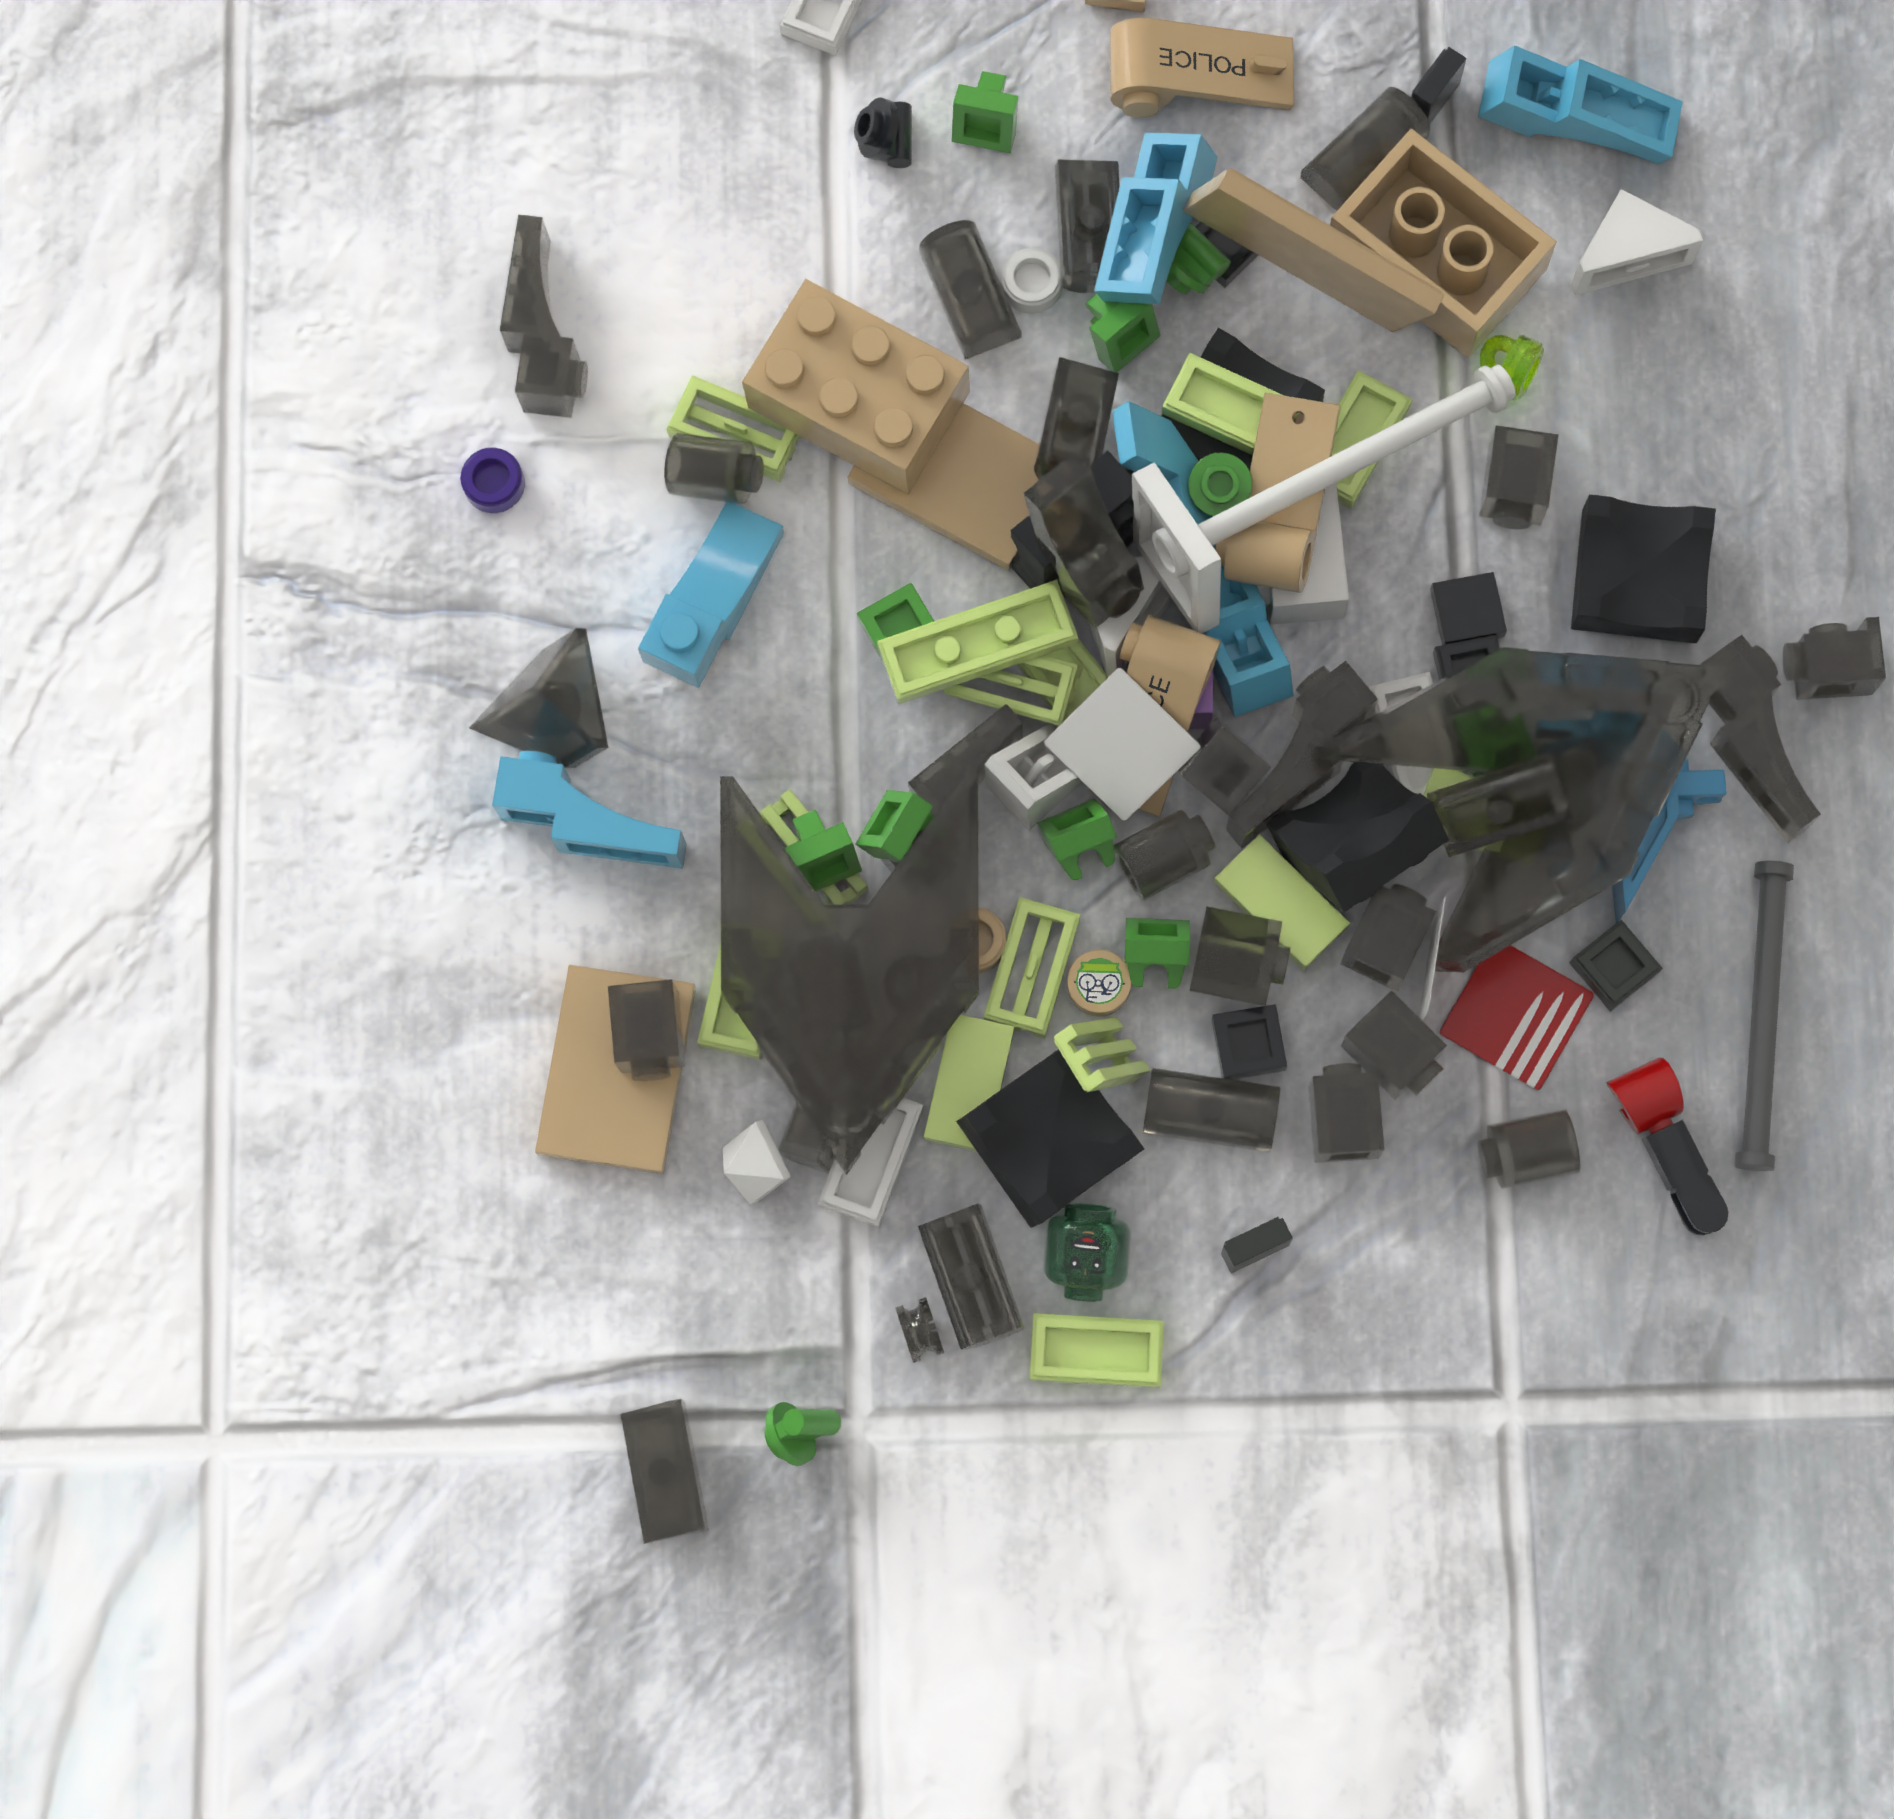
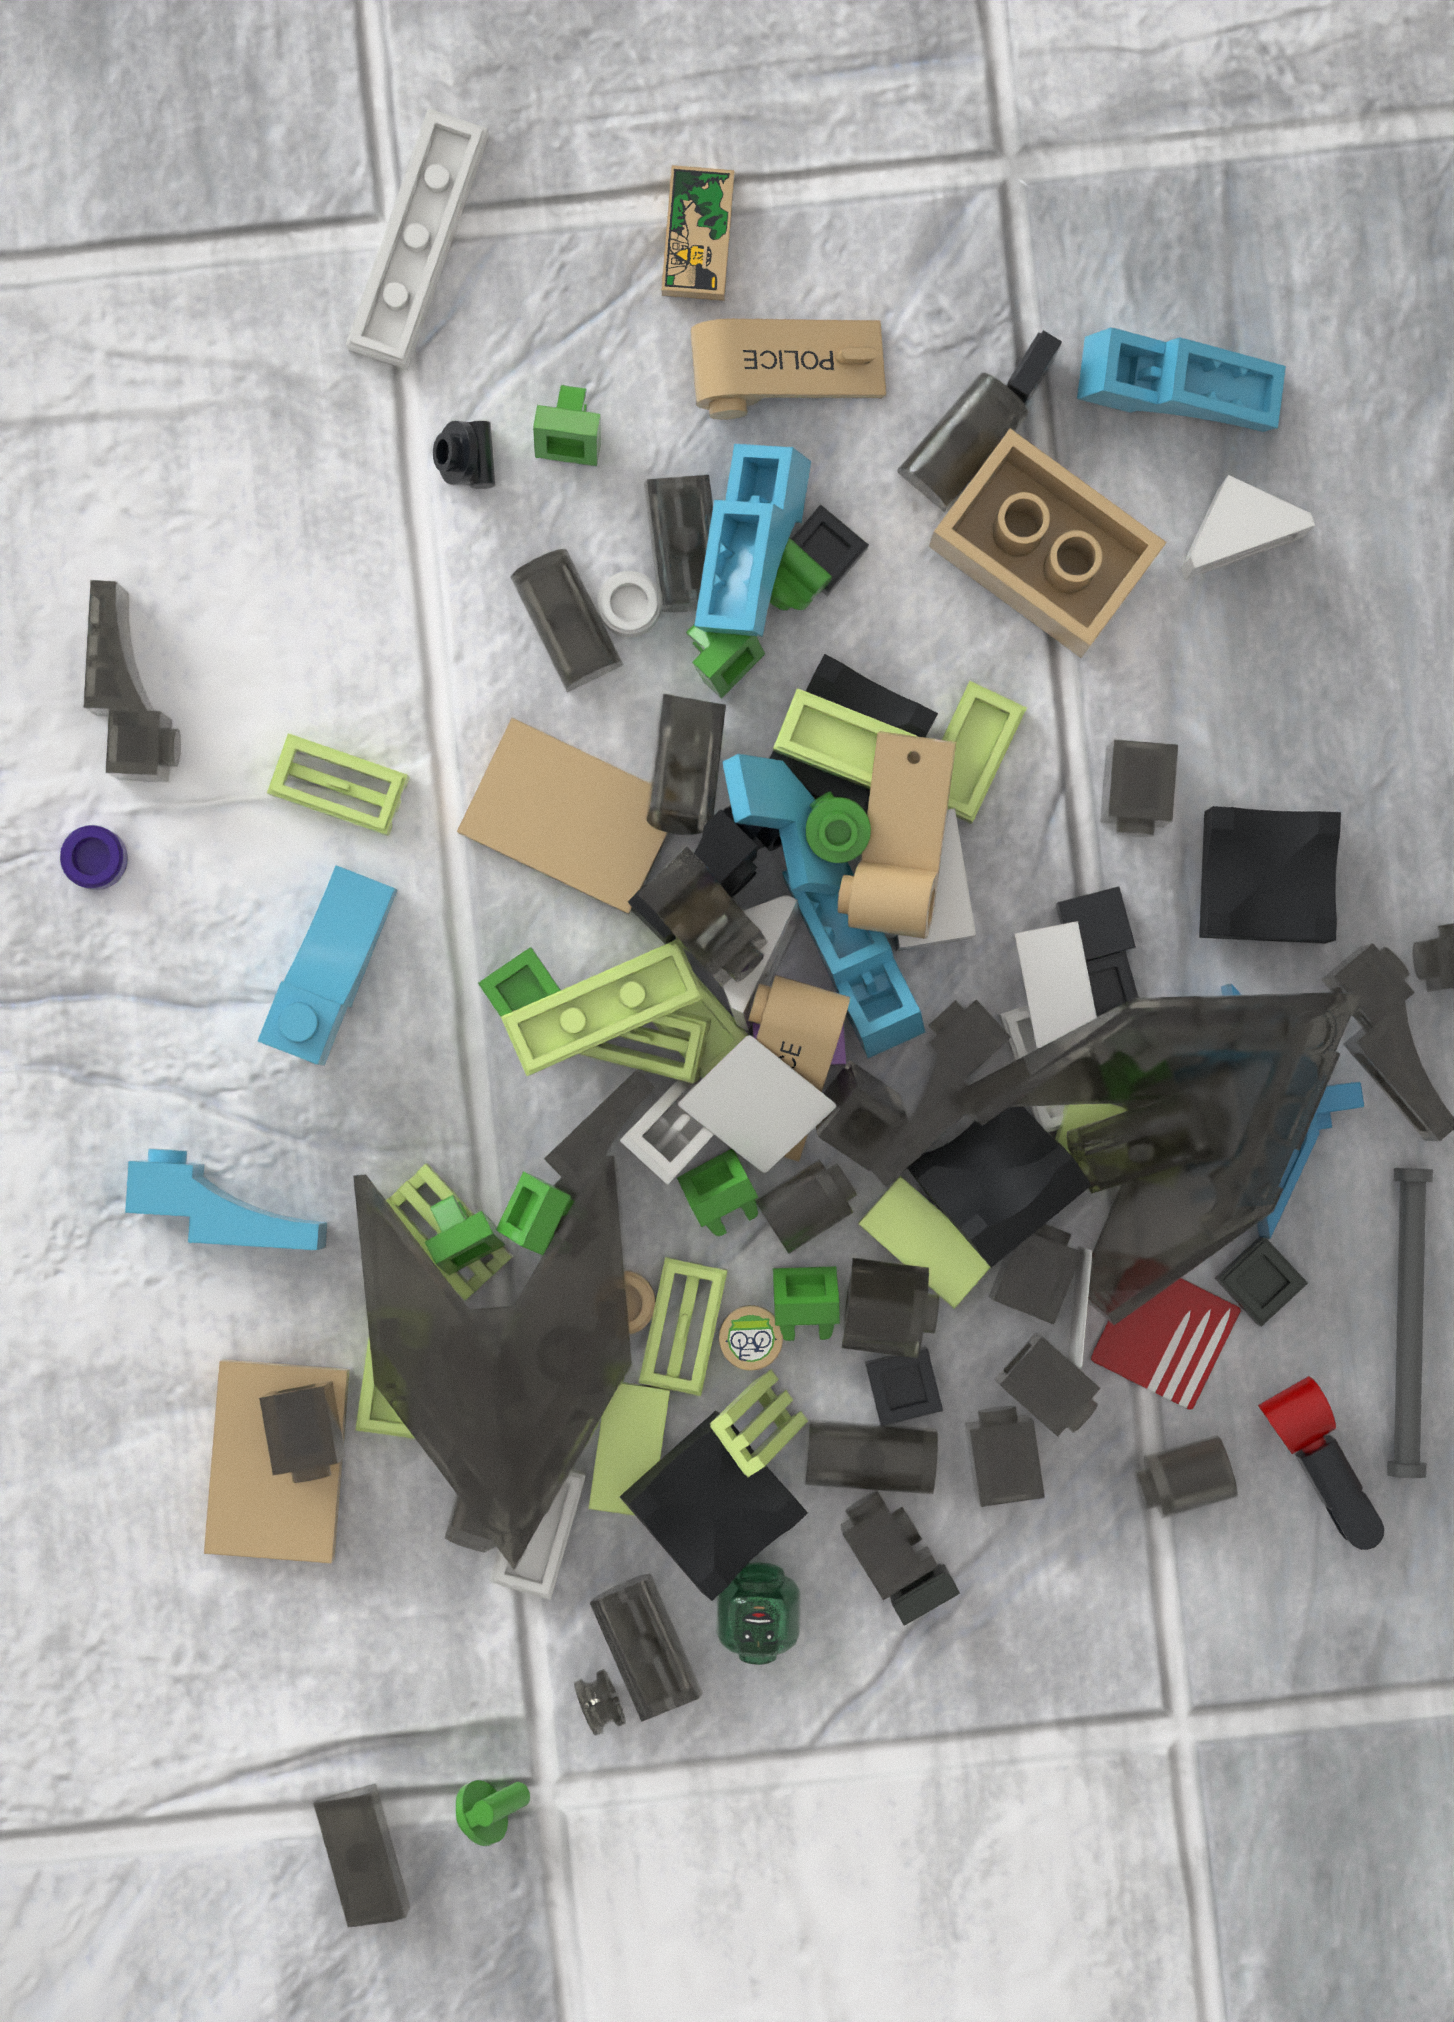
camera: 10 degrees left, 10 degrees up
(551, 705) = (175, 1093): clear smoke slope -> none
(712, 468) = (317, 836): clear smoke brick -> none
(754, 1163) = (421, 1549): white slope -> none
(856, 386) = (457, 742): tan brick -> none
(1096, 1350) = (774, 1704): yellowish green tile -> none
(1184, 551) = (806, 909): white tile -> none
(1220, 1192) = (885, 1544): none -> clear smoke brick
(1313, 251) = (917, 572): tan tile -> none
(1422, 643) = (1055, 980): none -> white tile
(1521, 362) = (1133, 669): clear neon green tile -> none

